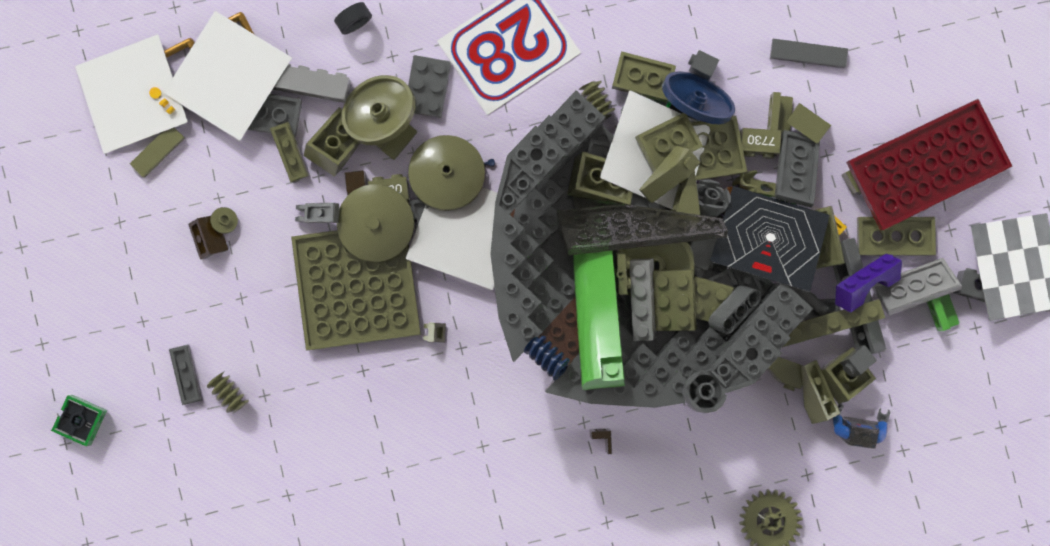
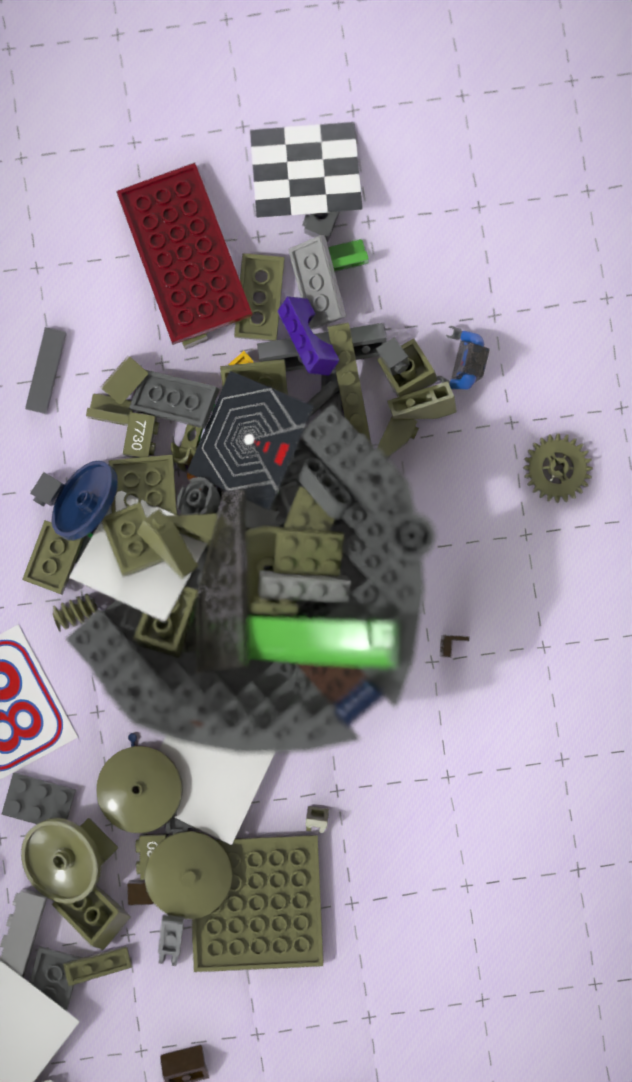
camera: 85 degrees left, 0 degrees up
(224, 220) = (167, 1047): olive piece -> none
(227, 393) = (362, 1059): olive piece -> none

